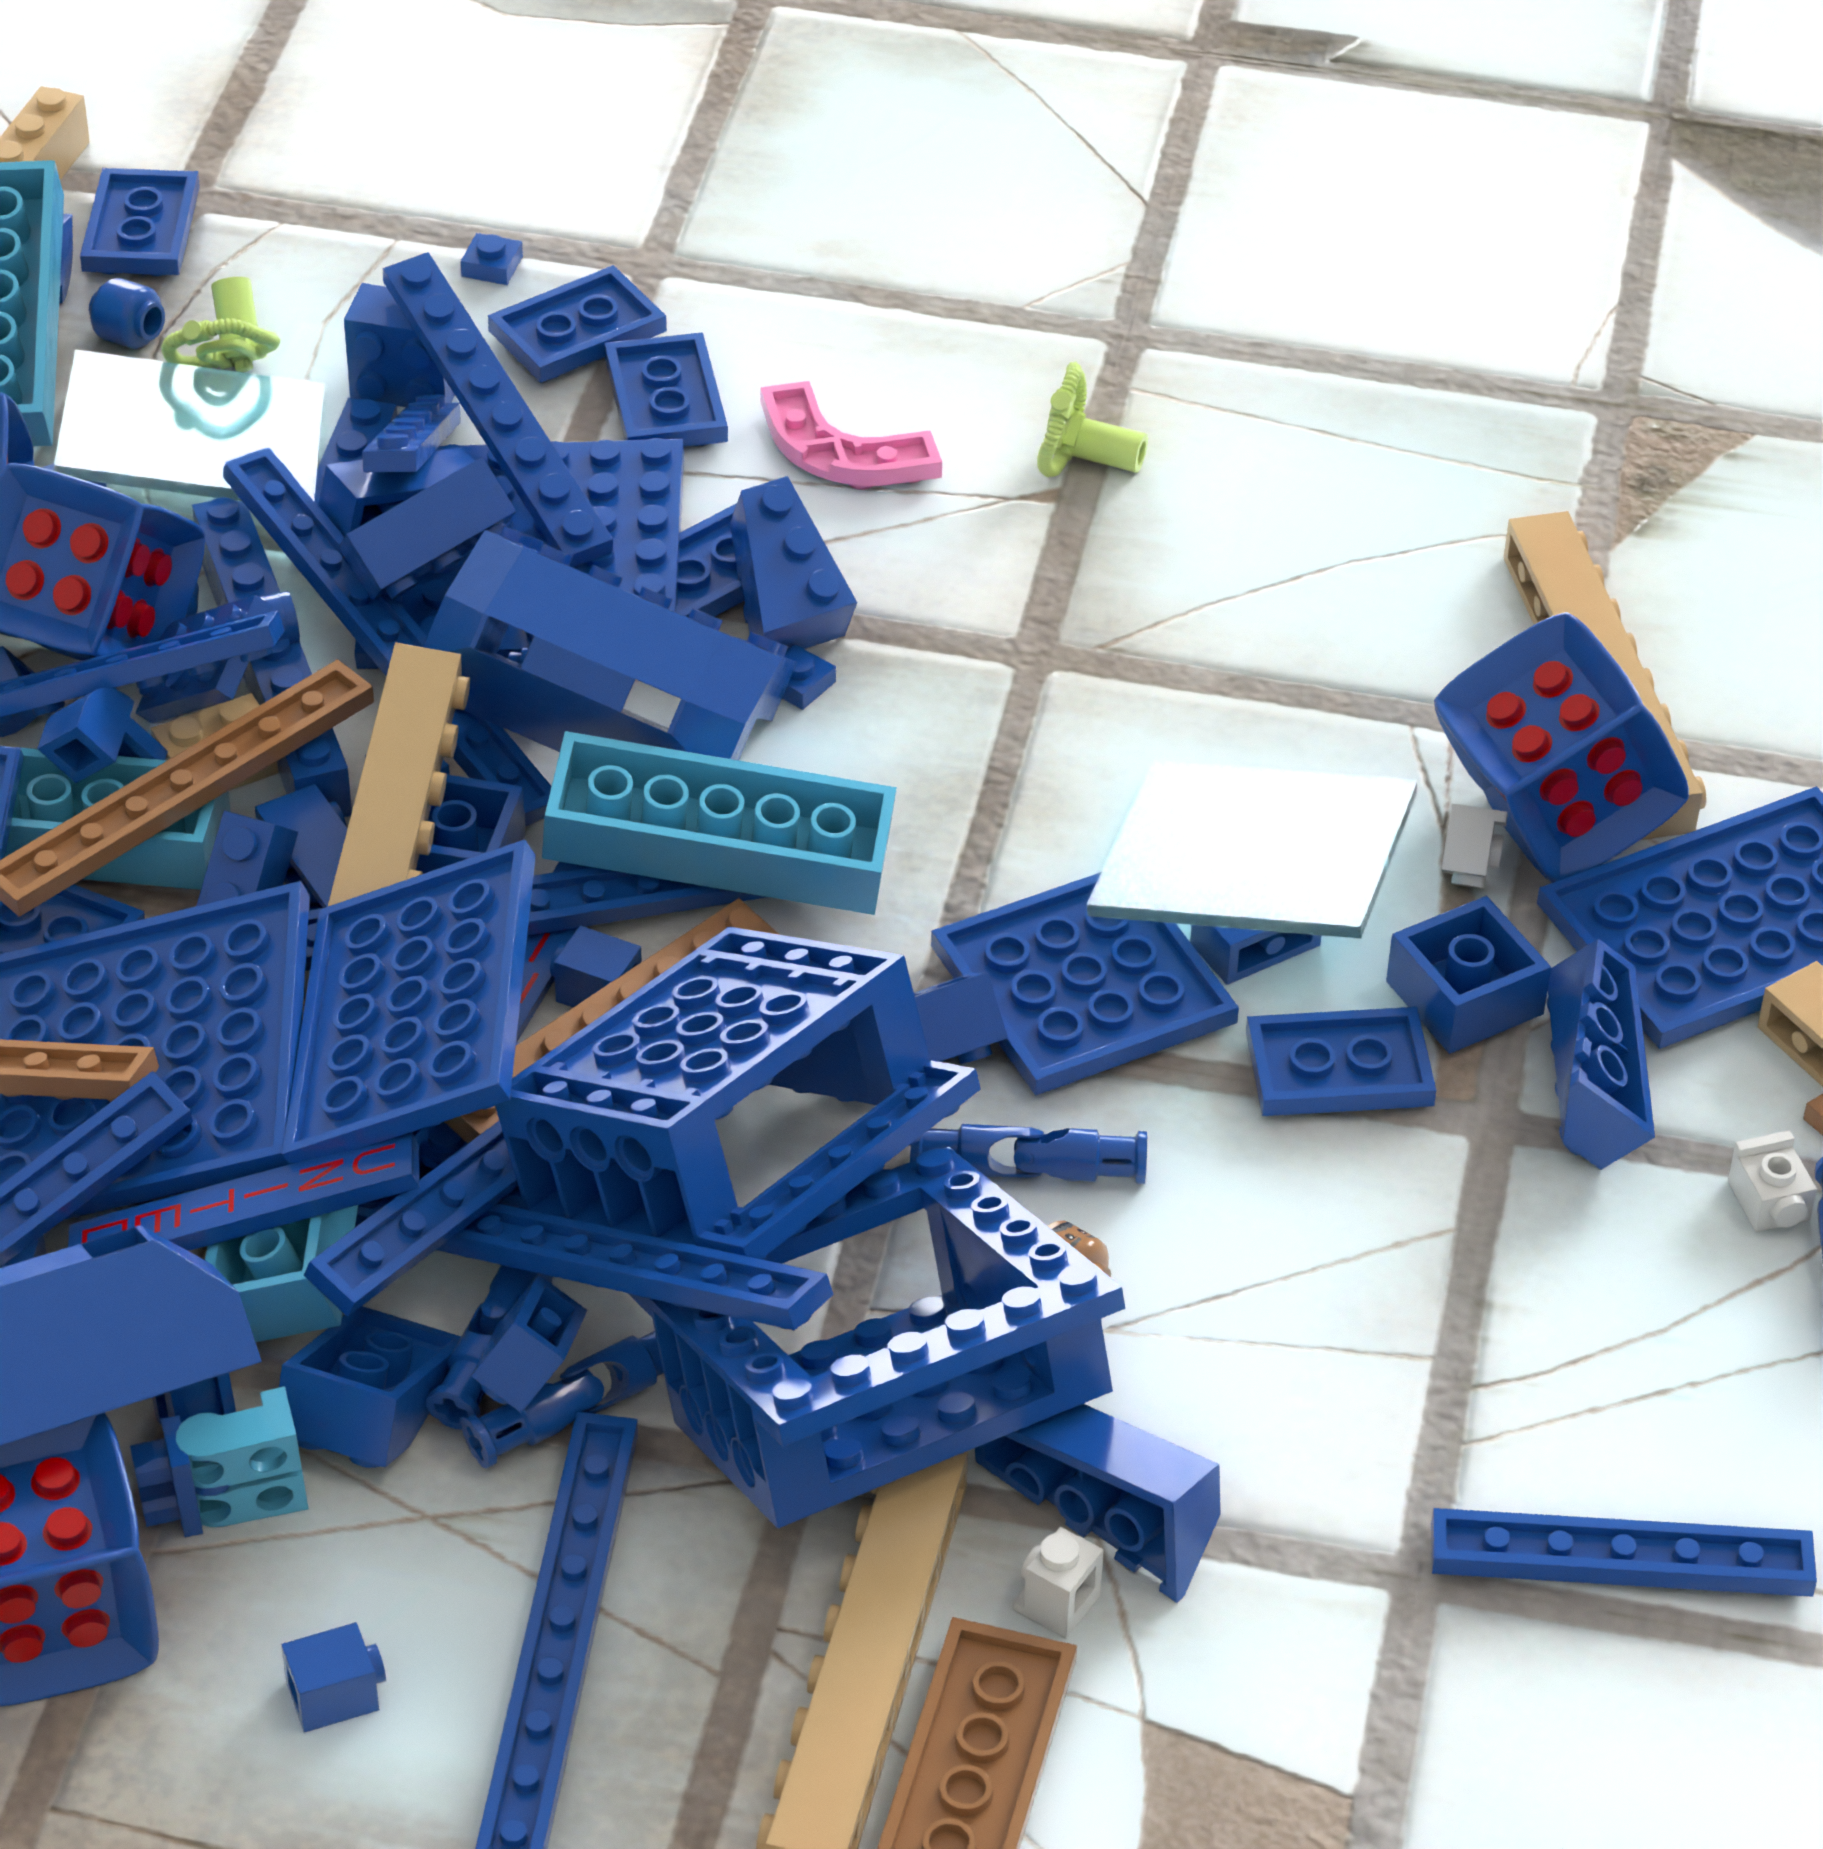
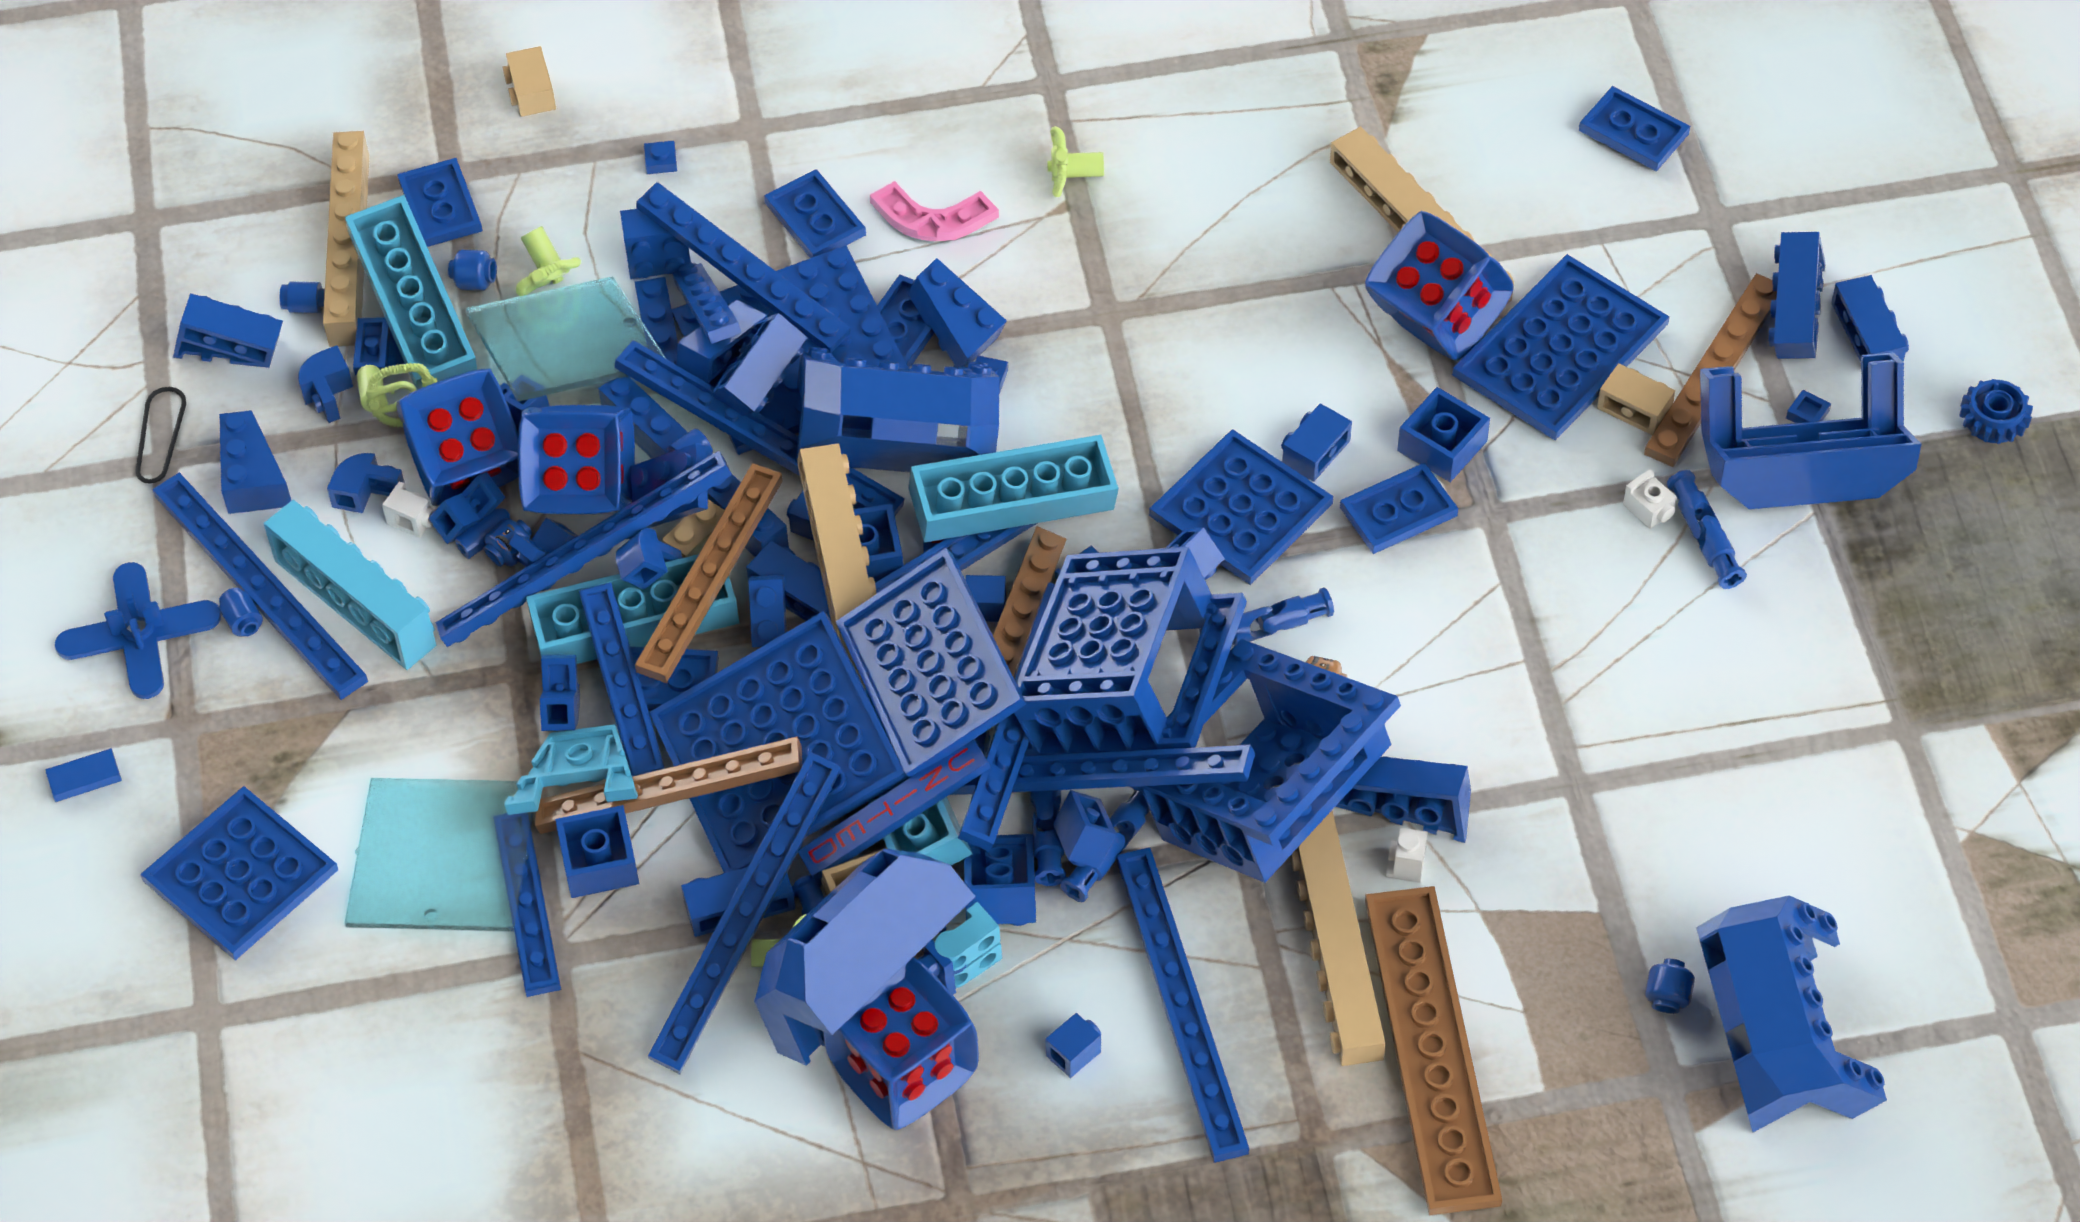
camera: 20 degrees left, 10 degrees up
(364, 112) = (530, 81): none -> tan brick
(574, 321) = (738, 186): blue plate -> none
(1254, 850) = (1298, 399): clear light blue piece -> none
(1472, 845) = (1407, 354): white brick -> none
(1599, 1055) = (1532, 458): blue wedge -> none
(1623, 1552) = (1670, 734): blue plate -> none

